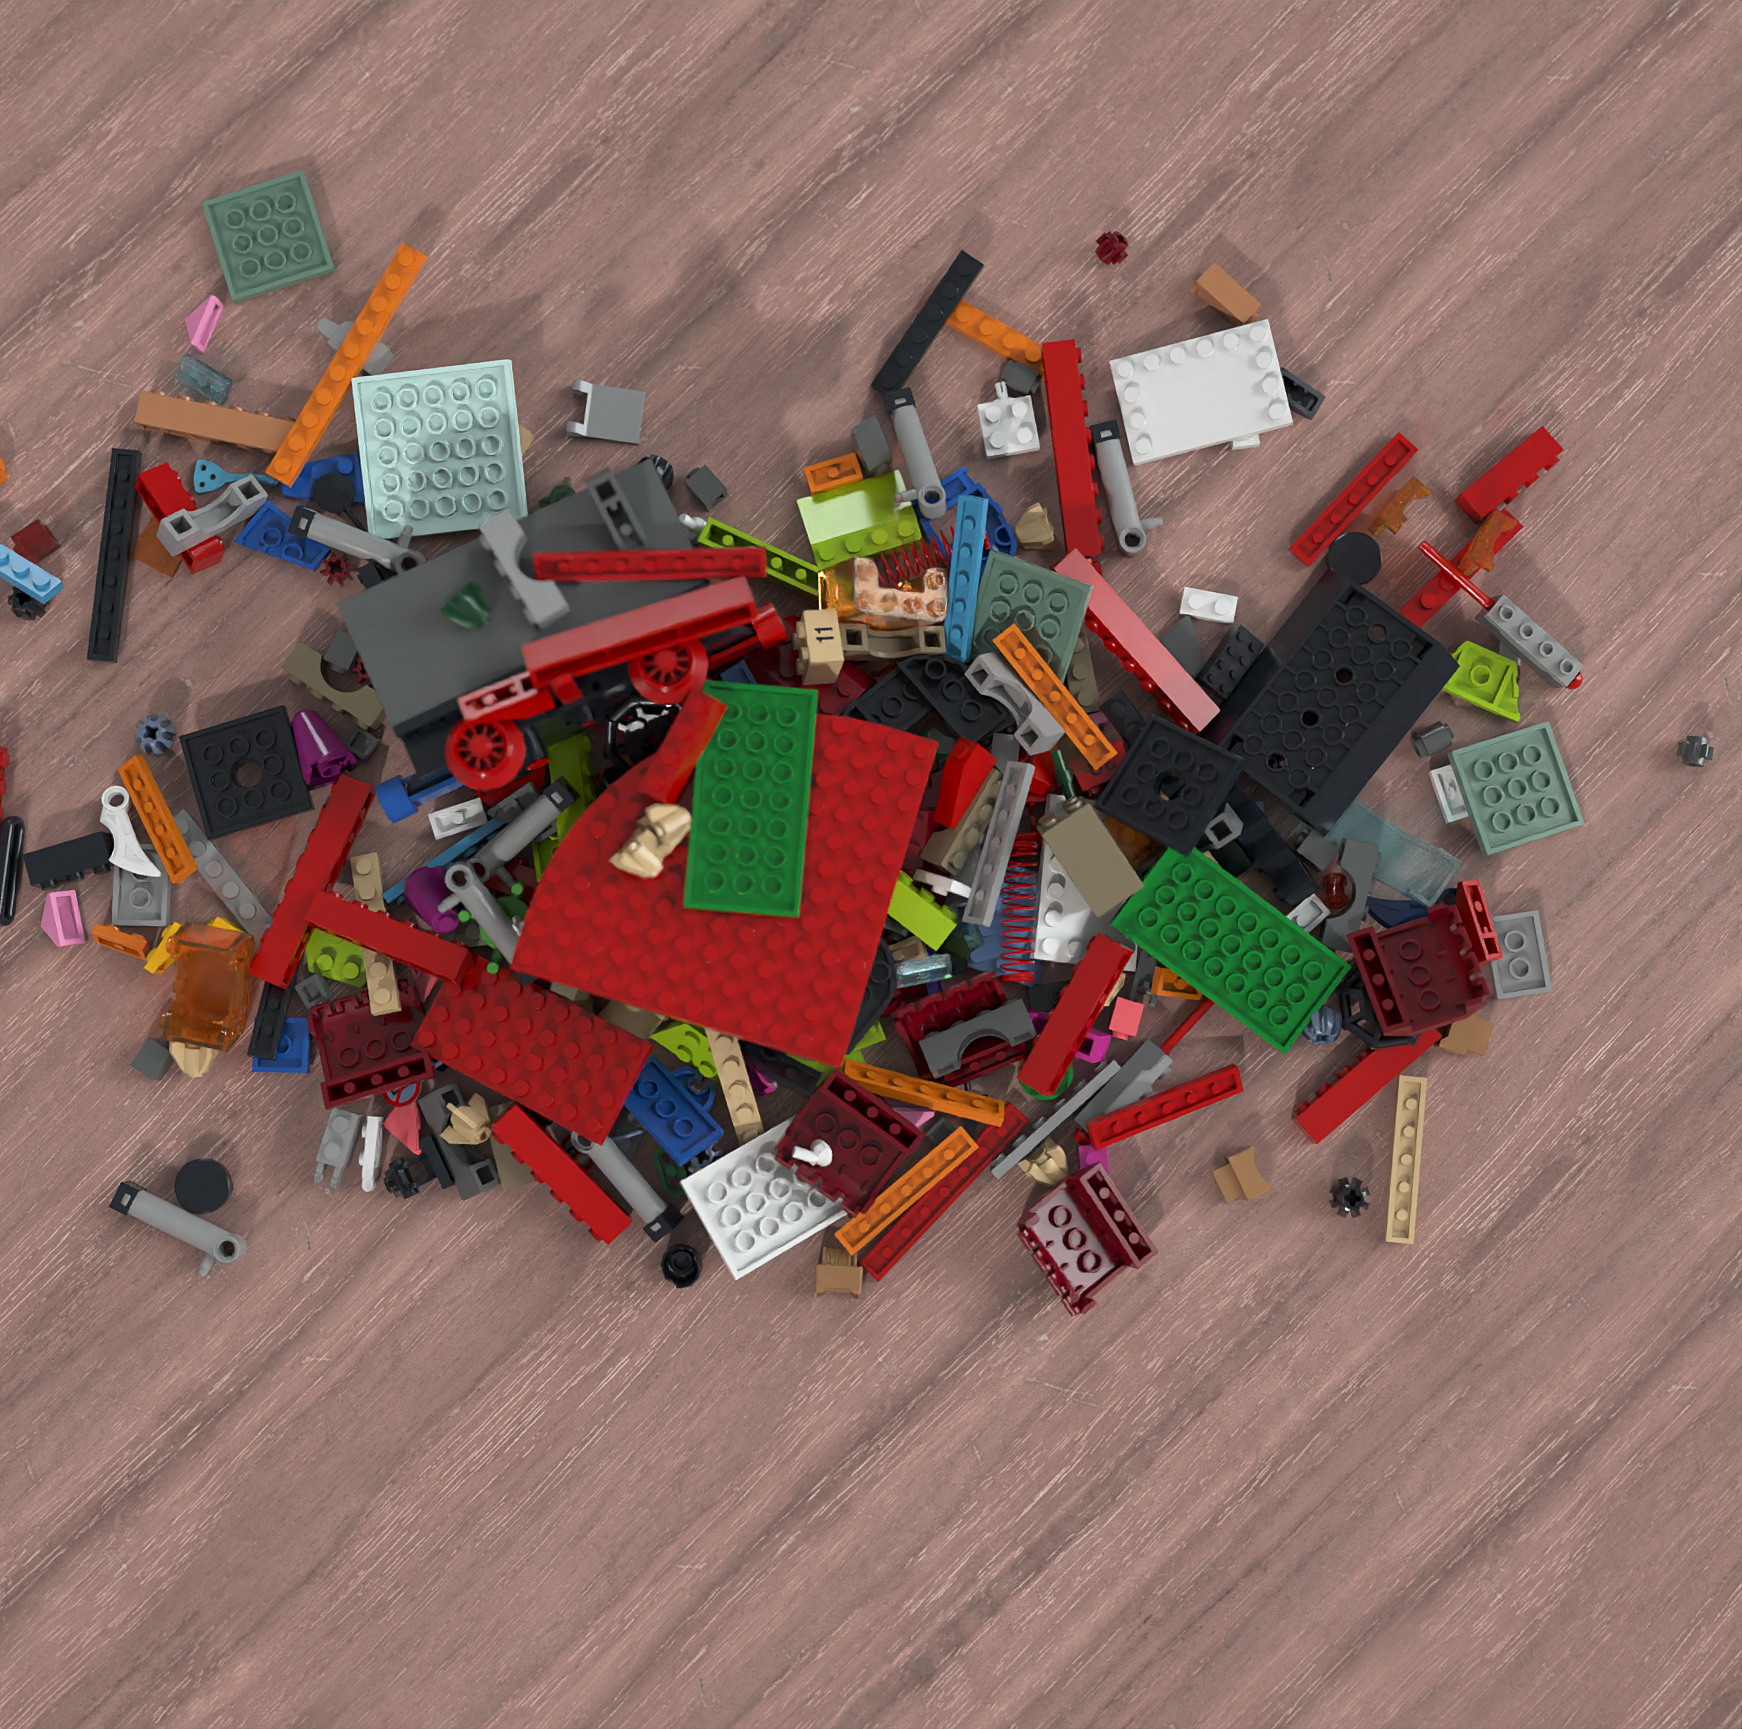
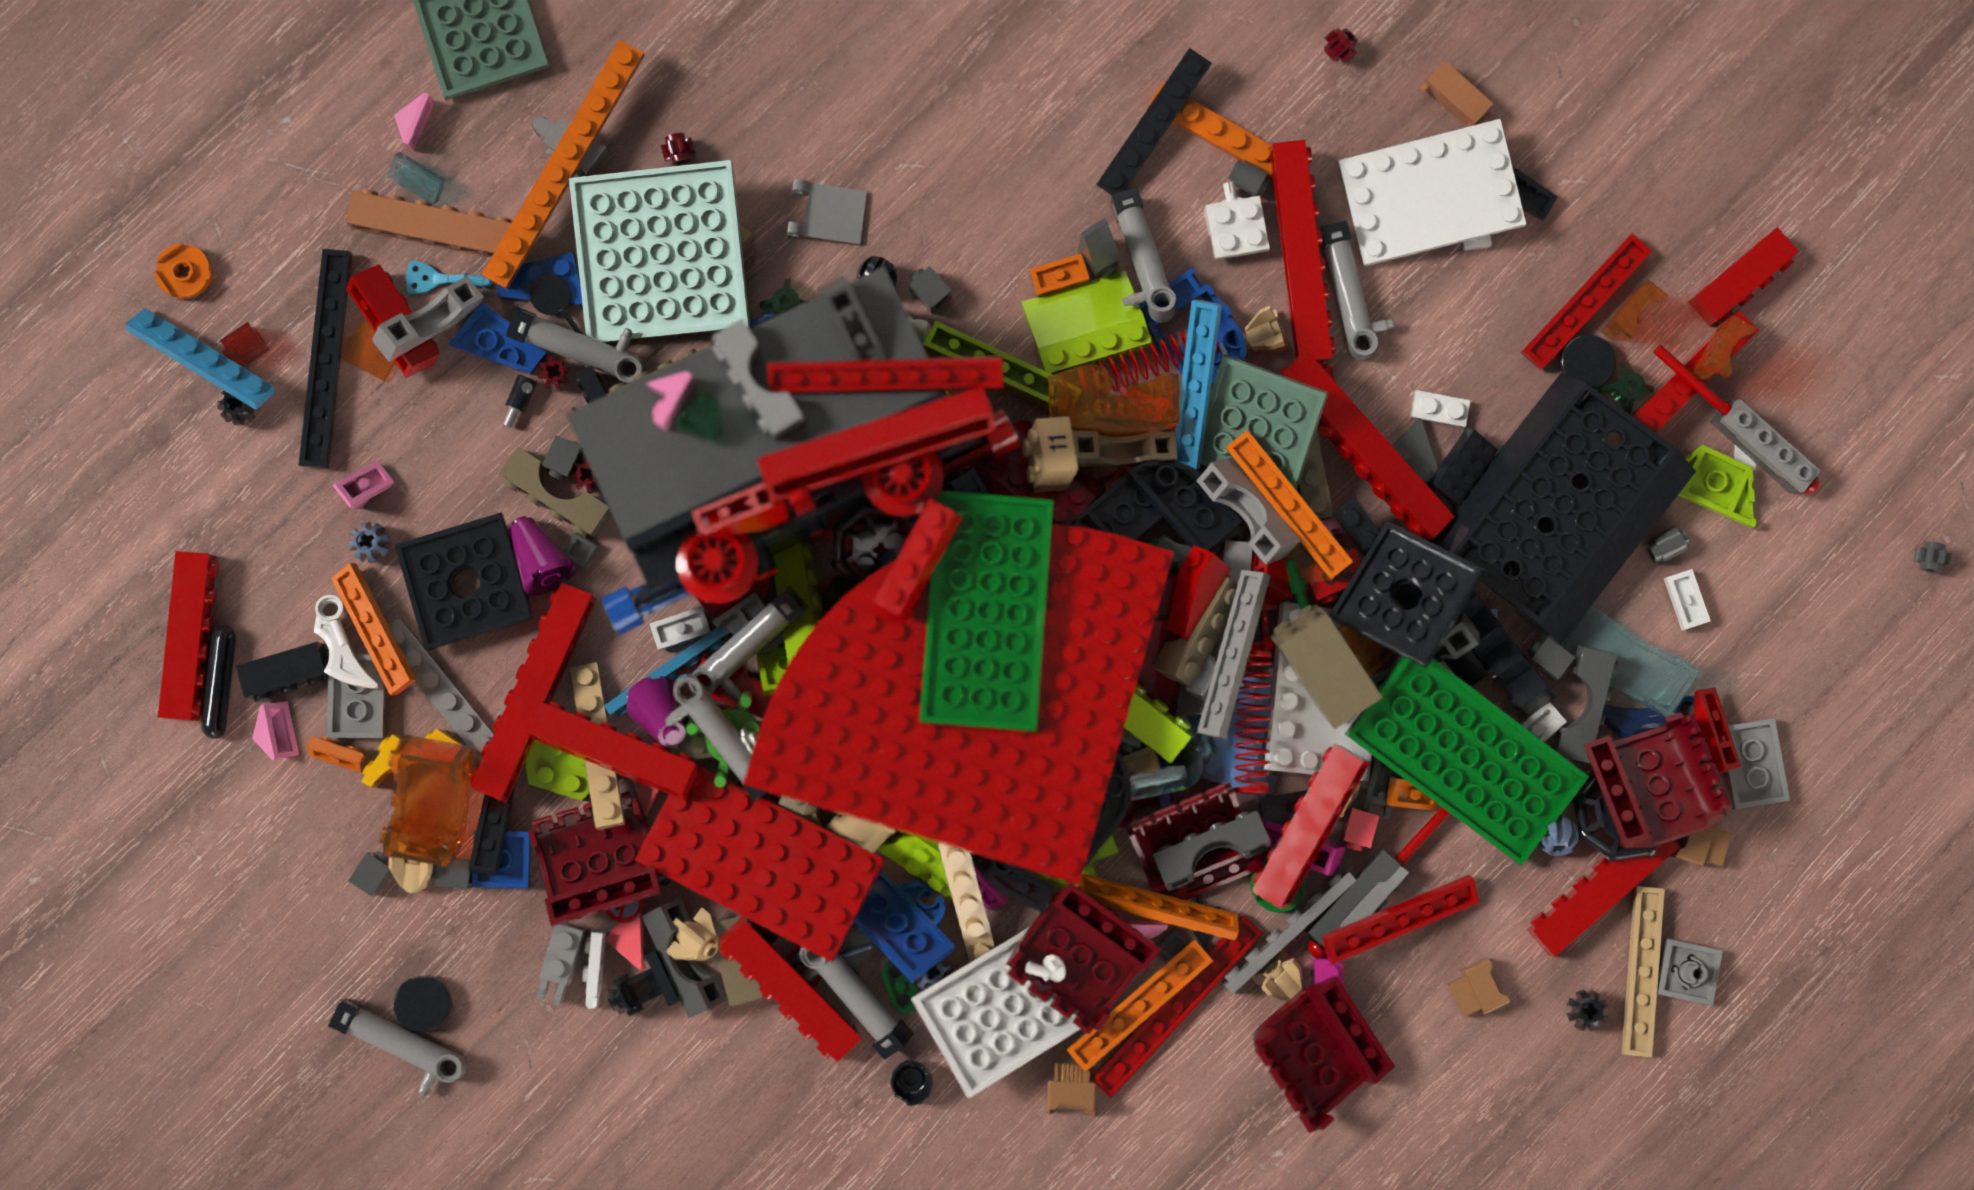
camera: 10 degrees left, 0 degrees up
(149, 678) = (363, 485): none -> bright pink slope
(234, 1060) = (454, 876): none -> dark grey brick
(302, 594) = (518, 398): none -> black piece
(313, 990) = (534, 803): dark grey plate -> none
(443, 580) = (675, 390): none -> bright pink slope
(460, 350) = (677, 149): none -> dark red gear
(640, 855) = (875, 668): tan brick -> none
(667, 824) = (901, 640): tan brick -> none
(942, 884) = (1175, 695): white plate -> none
(1335, 890) = (1570, 699): clear red bush -> none
(1386, 586) = (1621, 390): none -> clear green brick
(1461, 1162) = (1699, 974): none -> light grey plate
(1515, 788) = (1752, 595): sand green plate -> none

